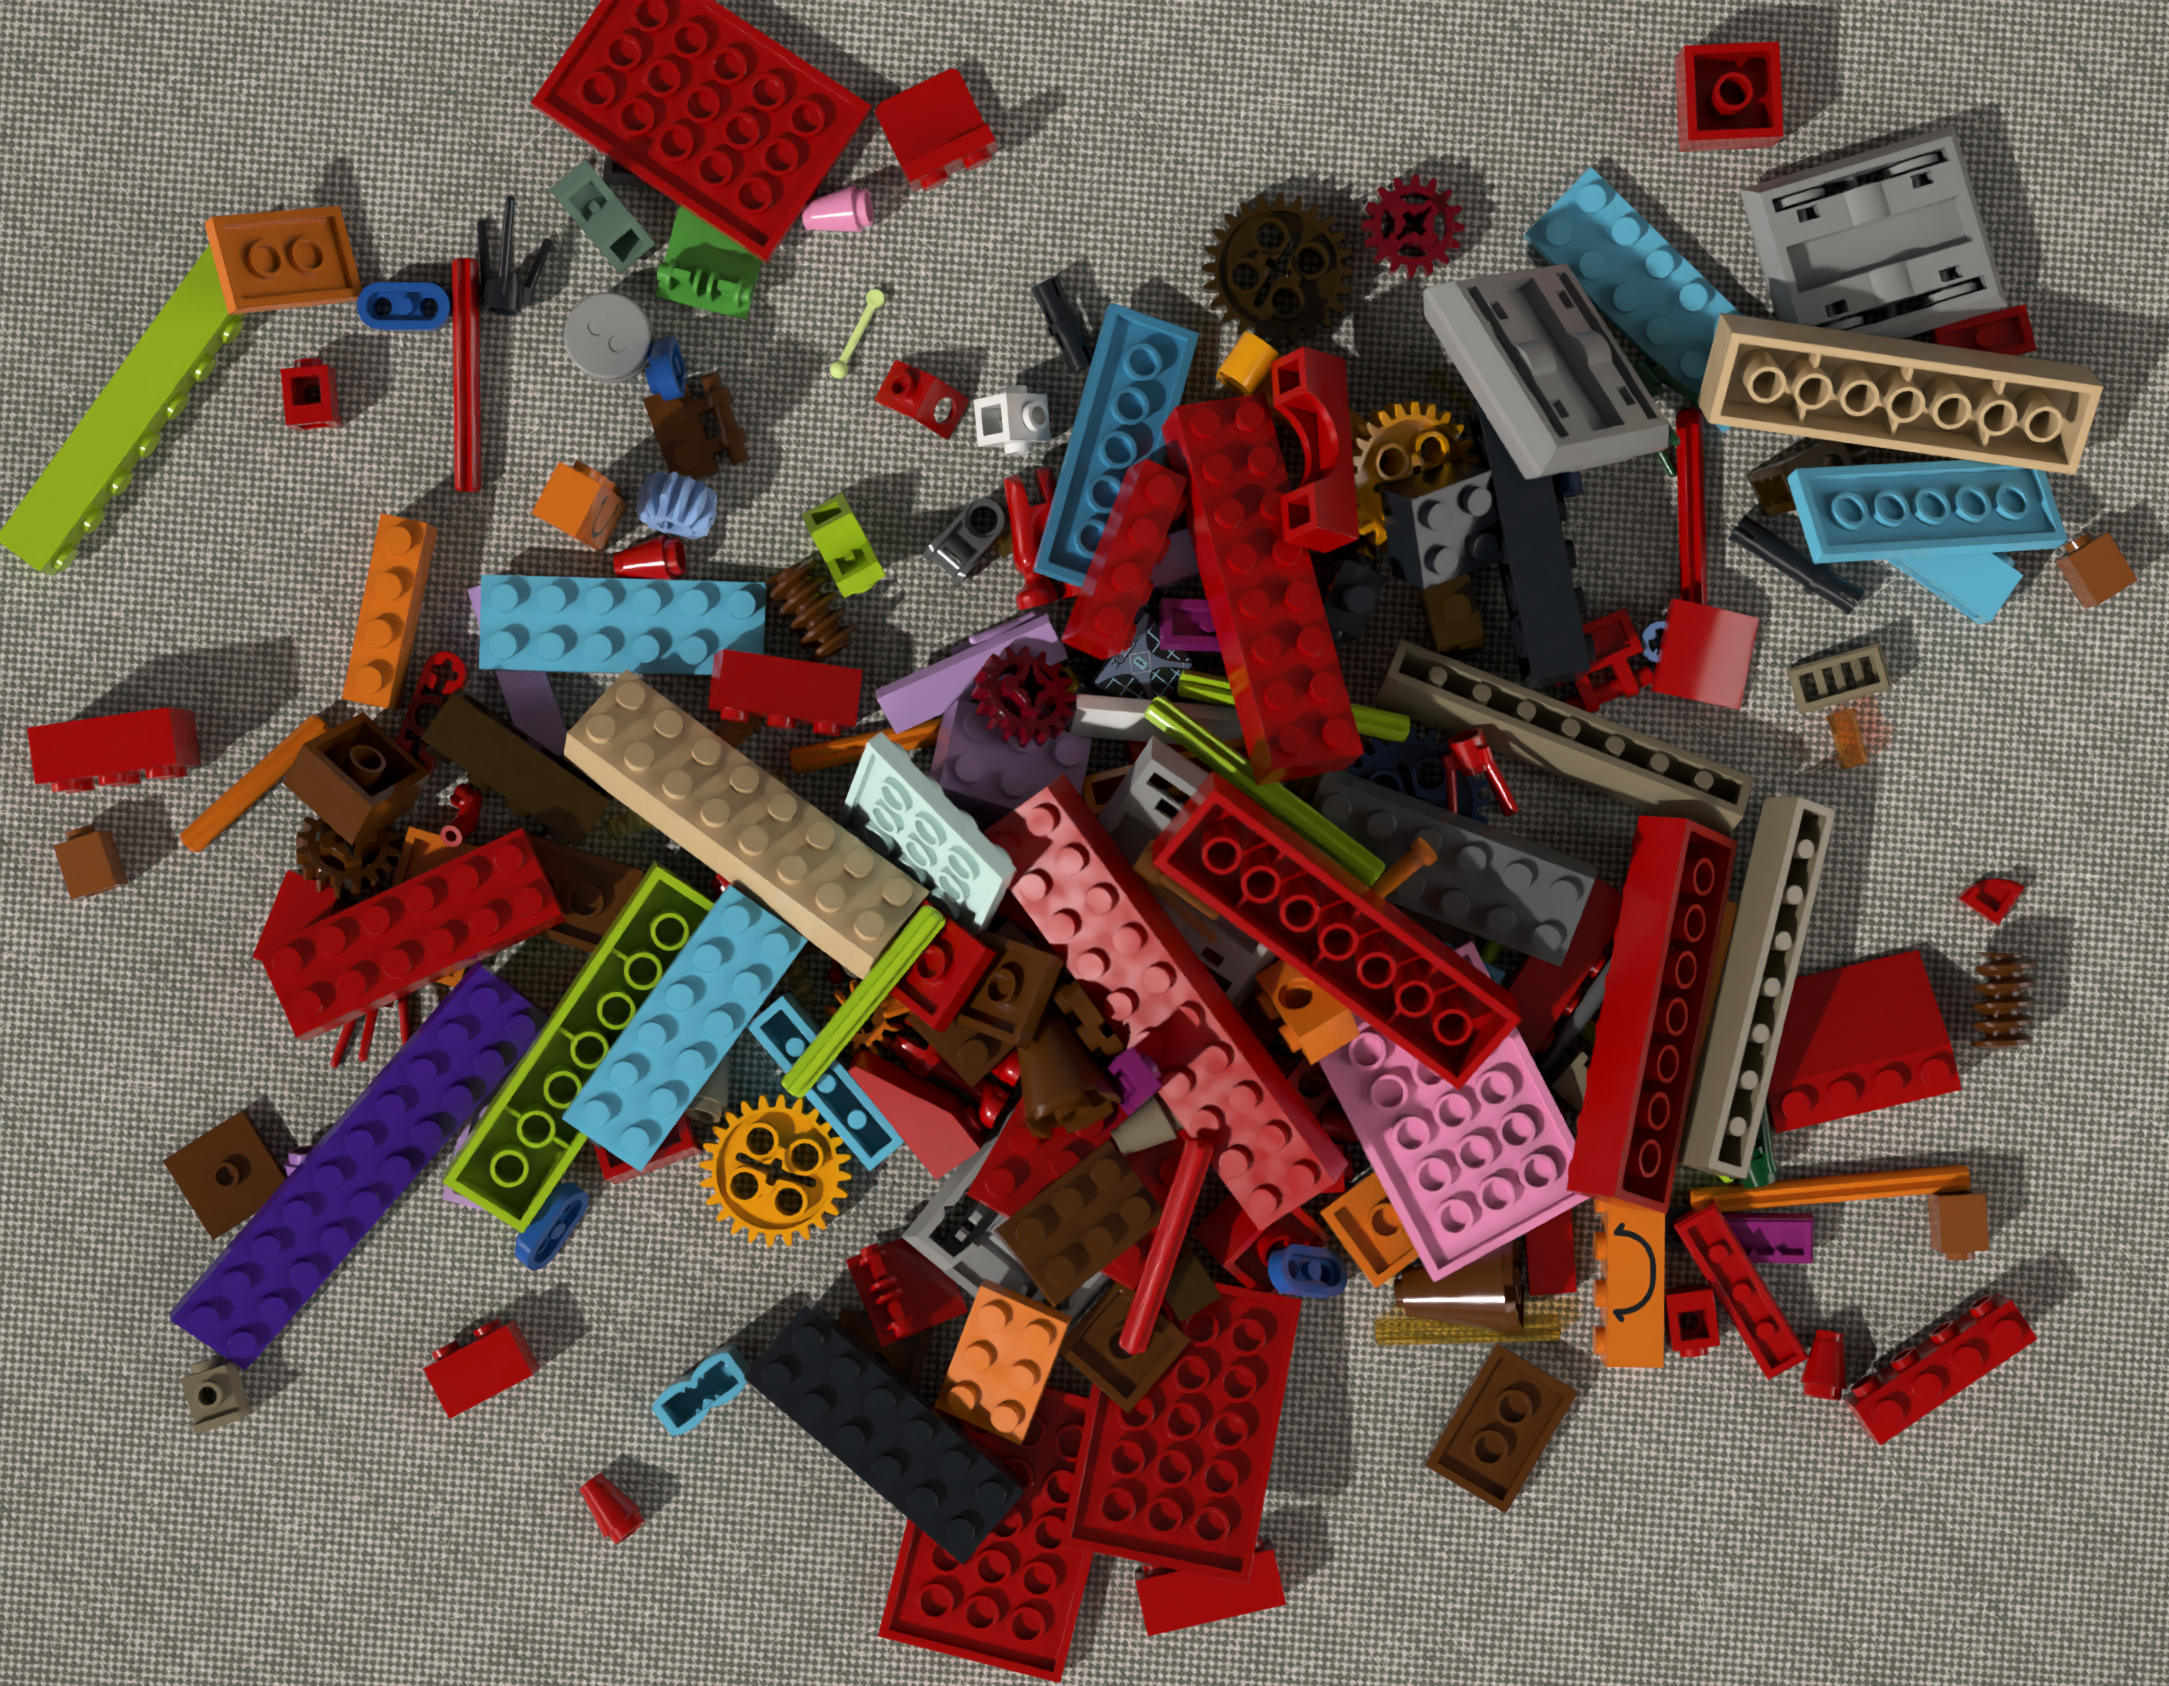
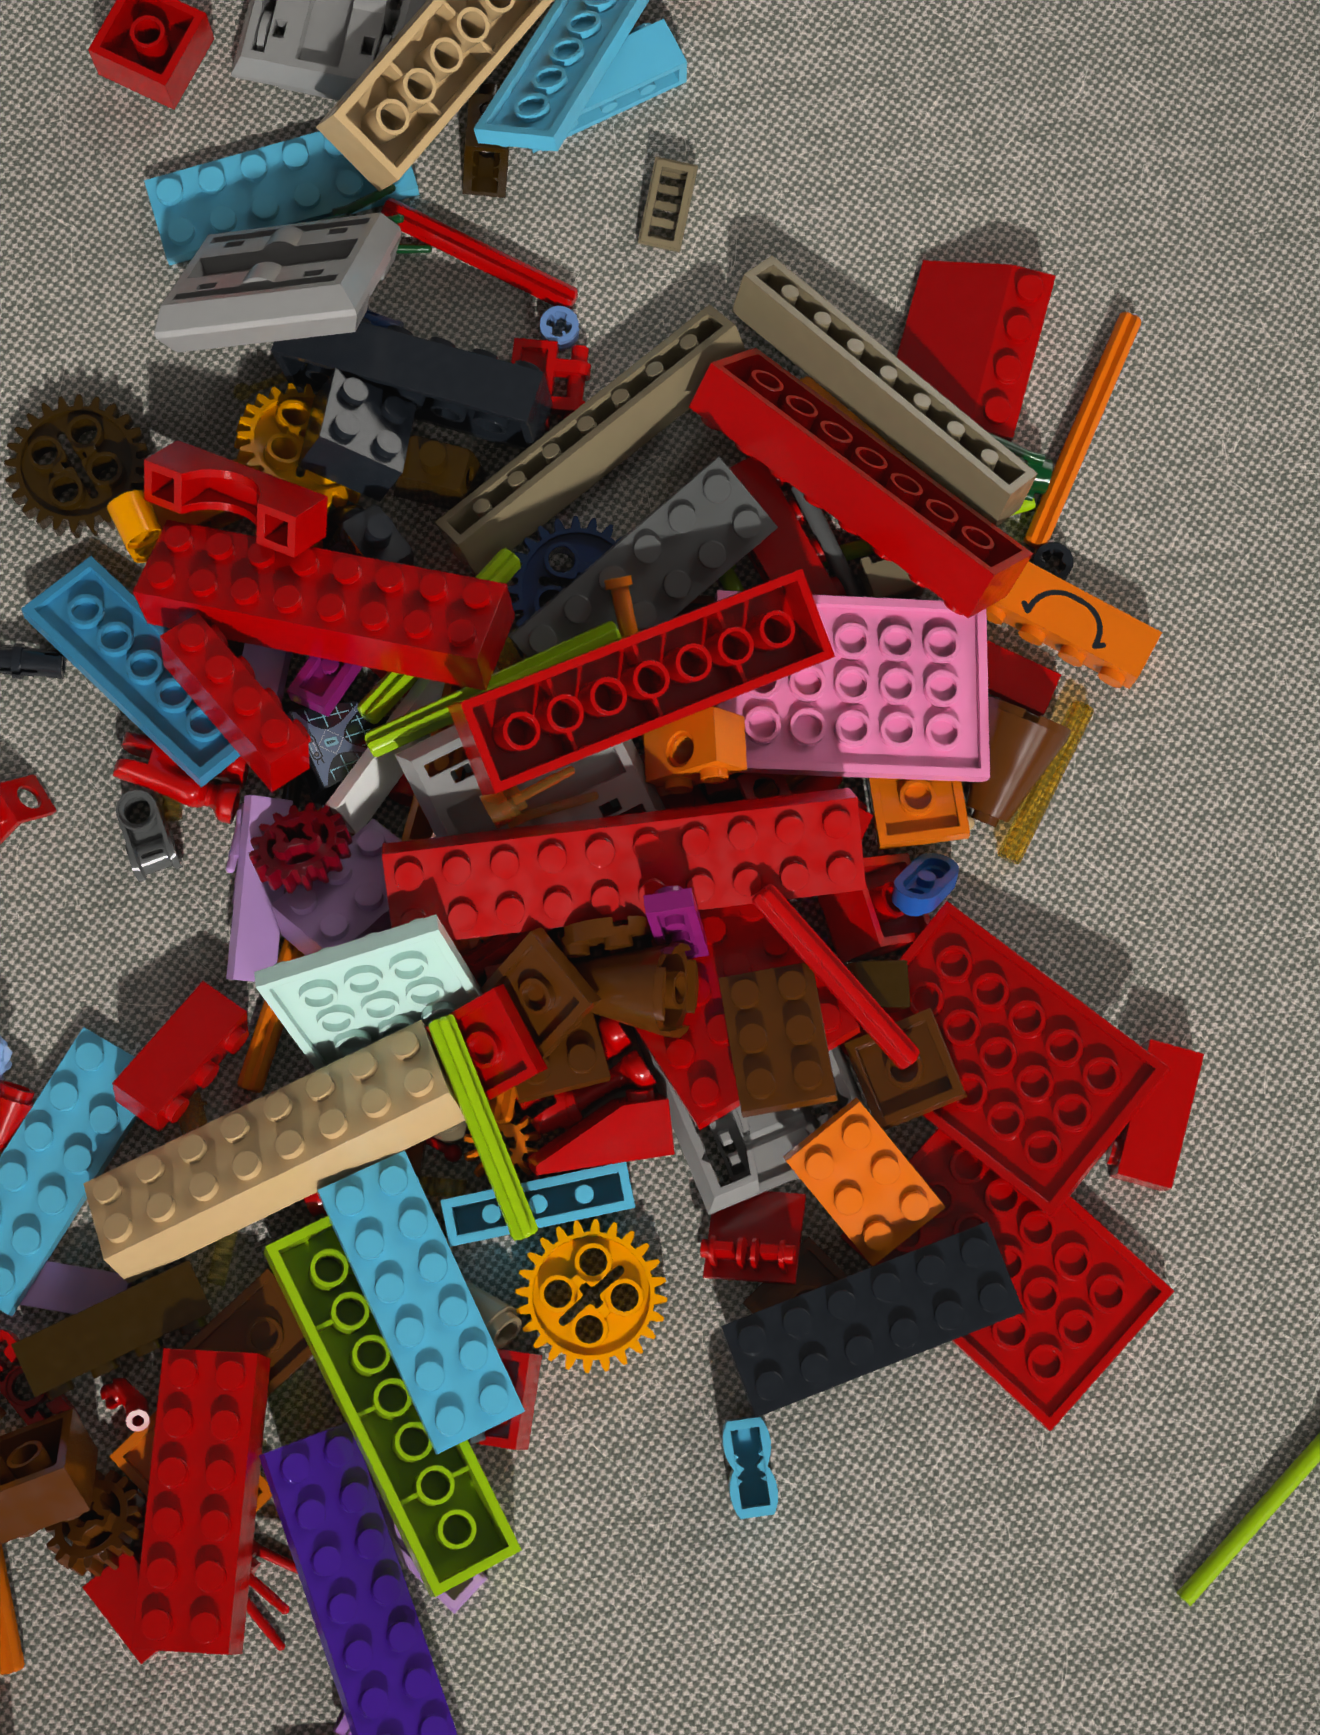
camera: 70 degrees left, 10 degrees down
(481, 1367) = (622, 1661): red brick -> none
(551, 1226) = (531, 1525): blue plate -> none
(612, 1509) = (813, 1612): red cone -> none
(811, 610) = (128, 999): reddish brown piece -> none
(844, 546) = (90, 941): lime brick -> none
(1012, 420) = (69, 742): white brick -> none
(1147, 1127) = (725, 939): dark tan cone -> none
(1399, 210) = (126, 346): dark red gear -> none
(1474, 756) = (566, 511): red plant -> none
(1500, 1427) = (1143, 797): reddish brown plate -> none
(1704, 1332) = (1146, 584): red brick -> none
(1705, 654) = (587, 296): red slope -> none
(1740, 1289) = (1128, 540): red tile -> none
(1775, 1236) = (1096, 499): magenta plate -> none
(1796, 565) = (557, 190): black pin -> none
(1826, 1367) = (1230, 508): red cone -> none
(1848, 739) = (721, 224): clear orange pin -> none
(1939, 1367) = (1277, 417): red brick -> none
(1958, 1223) = (1165, 341): dark orange brick -> none
(1991, 897) = (912, 183): red tile -> none
(2004, 1000) = (1000, 212): reddish brown piece -> none

